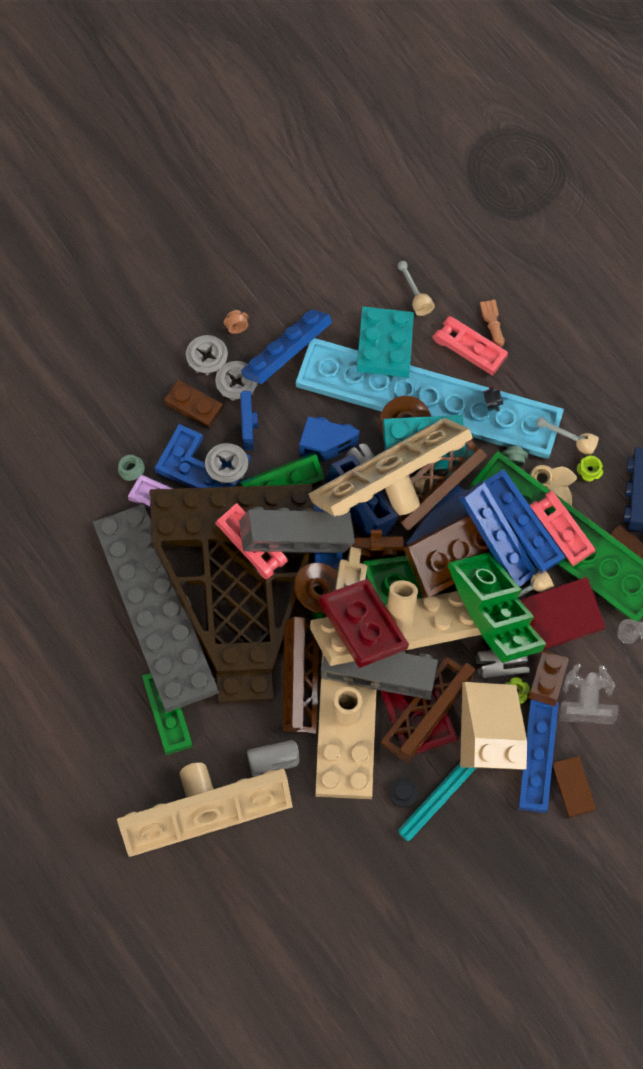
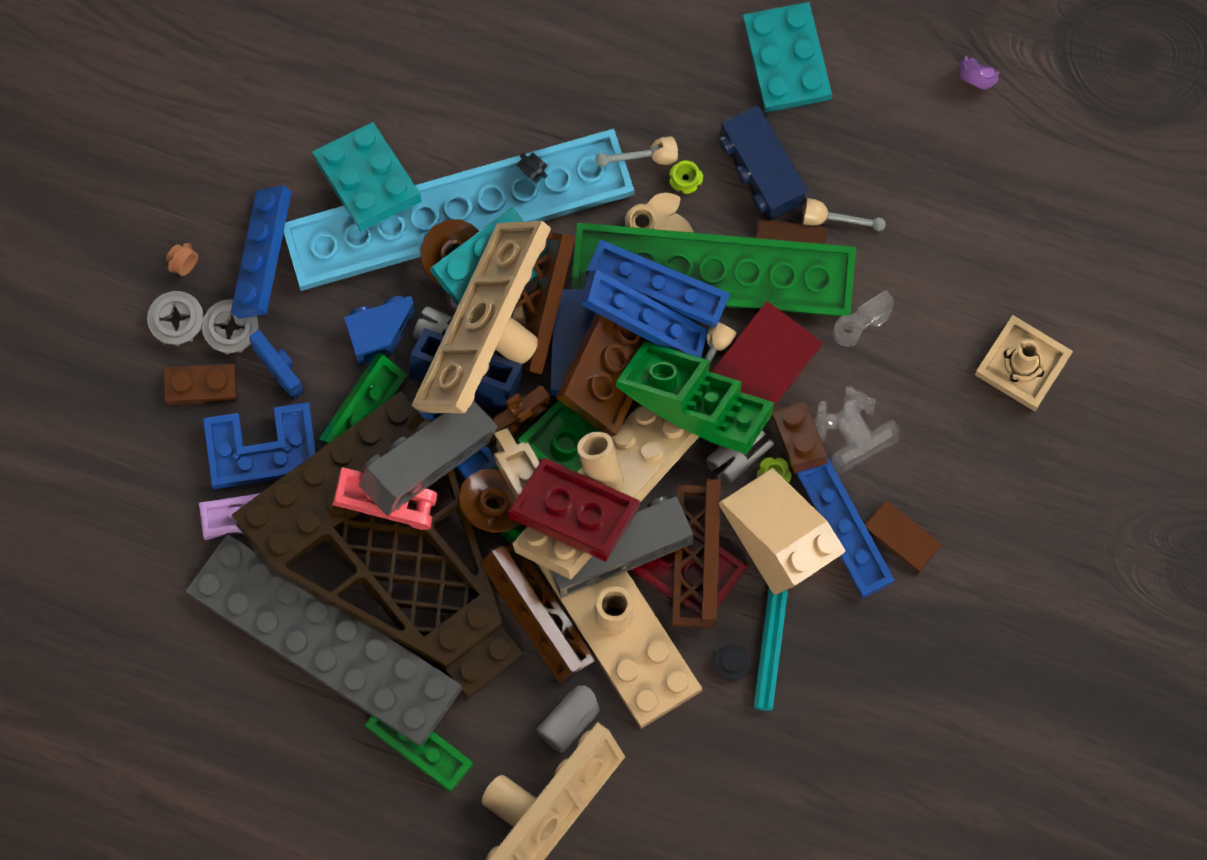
camera: 35 degrees left, 5 degrees up
(127, 463) = (177, 496): sand green plate -> none
(226, 452) = (279, 417): light grey gear -> none
(422, 302) = (374, 104): tan hinge -> none
(471, 345) = (462, 120): coral plate -> none
(490, 314) = (458, 70): nougat piece -> none
(516, 455) = (597, 214): sand green plate -> none
(563, 529) = (707, 264): coral plate -> none

